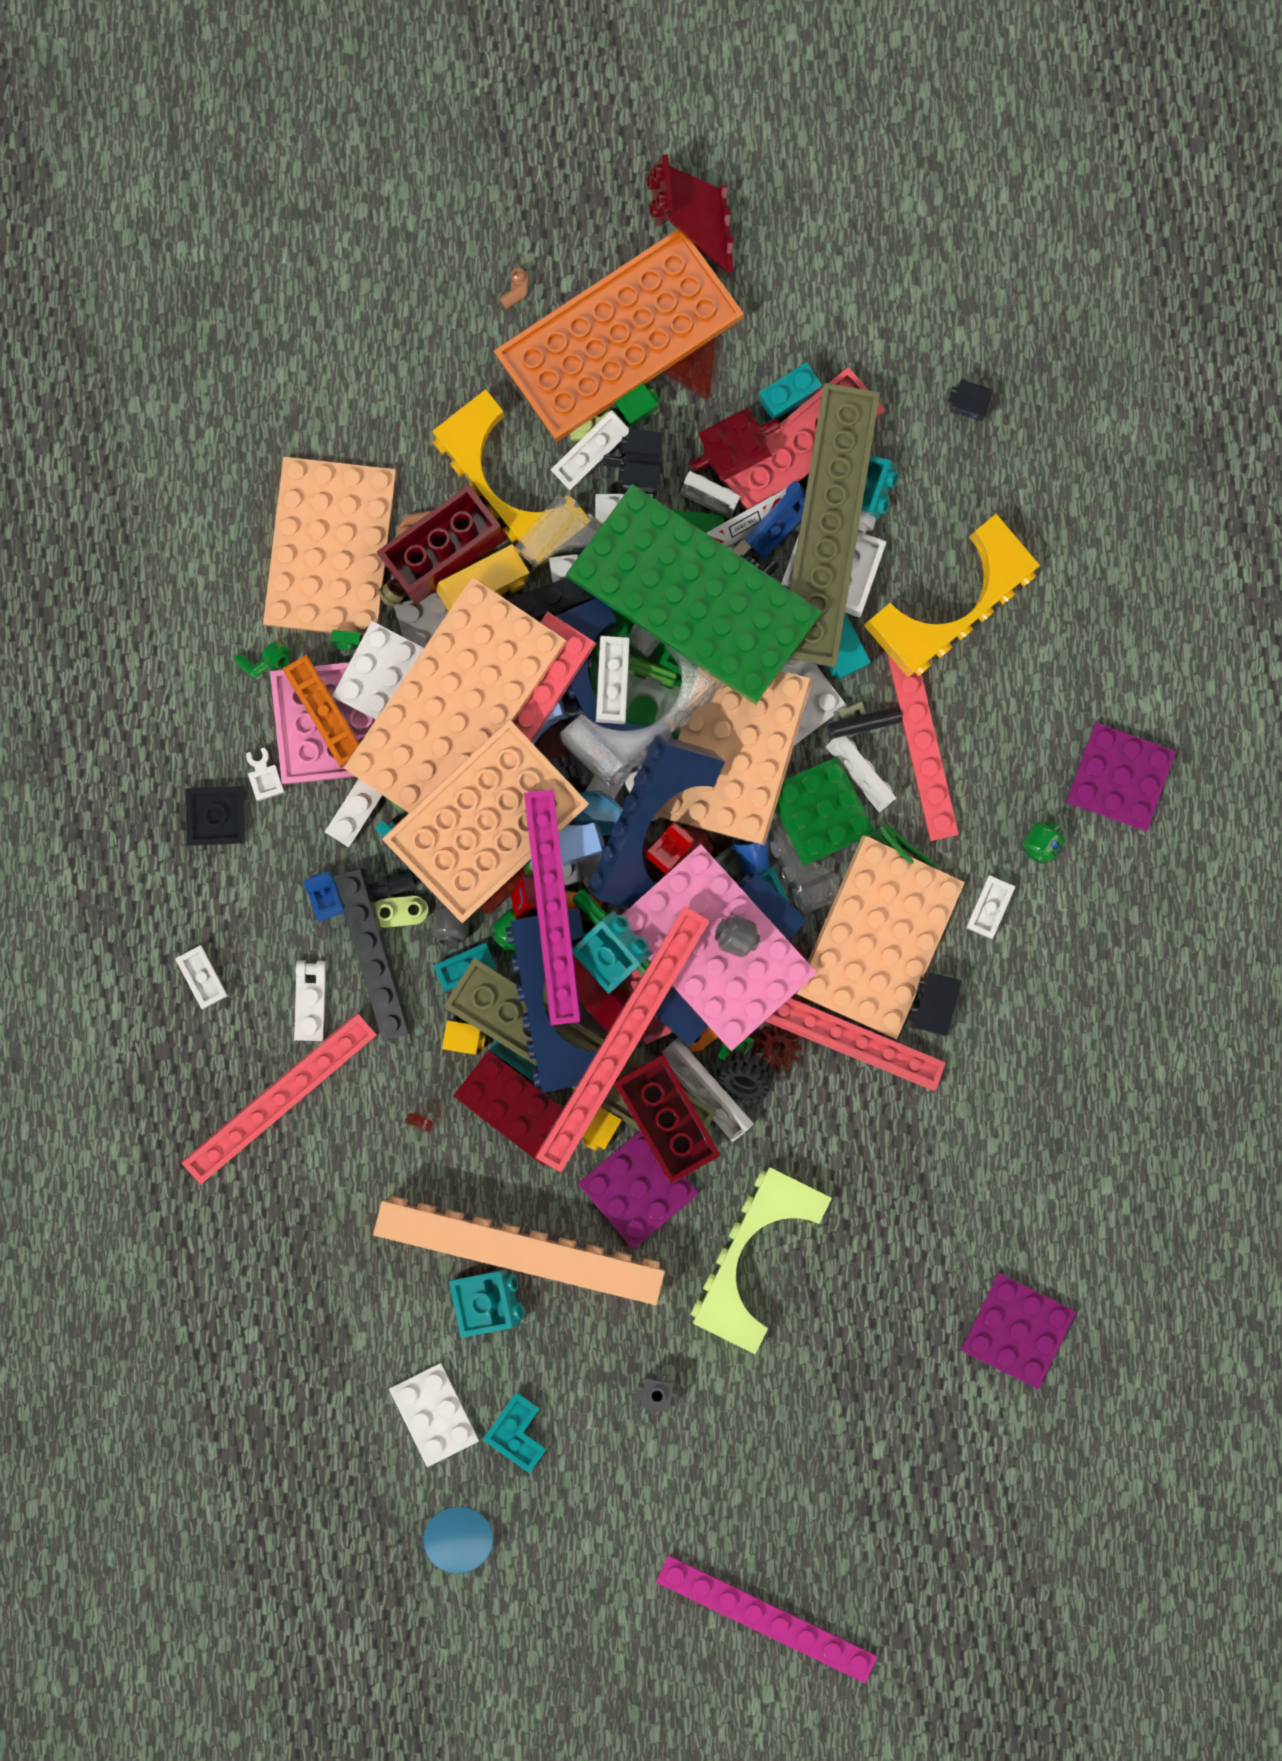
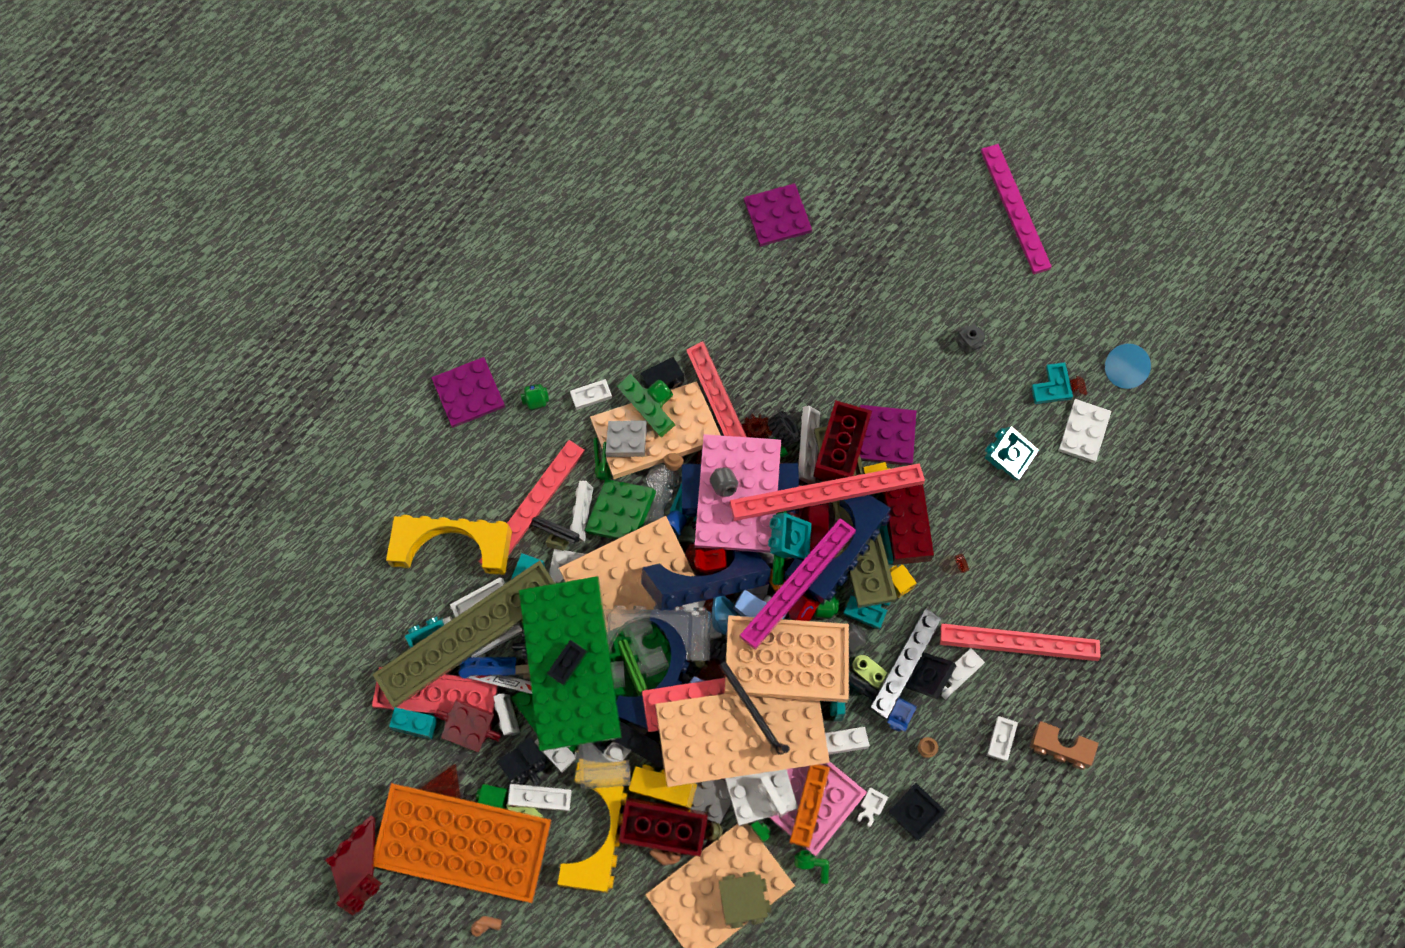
camera: 130 degrees left, 15 degrees down
(110, 1040) = (1046, 742): none -> nougat arch
(267, 892) = (927, 747): none -> medium nougat plate
(294, 554) = (744, 899): none -> olive brick
(333, 965) = (930, 675): none -> black plate
(377, 678) = (767, 789): none -> white plate
(406, 722) = (776, 747): none -> black bar
(489, 1462) = (1079, 384): none -> clear red piece
(519, 1251) = (973, 458): light nougat brick -> none
(612, 680) = (652, 664): white plate -> none
(691, 586) = (567, 662): none -> black plate
(774, 1200) = (828, 367): yellowish green arch -> none
(819, 915) = (673, 461): none -> medium nougat plate
(895, 889) = (626, 439): none -> light grey plate
(915, 955) = (649, 402): none -> green plate
(970, 400) = (334, 628): black brick -> none

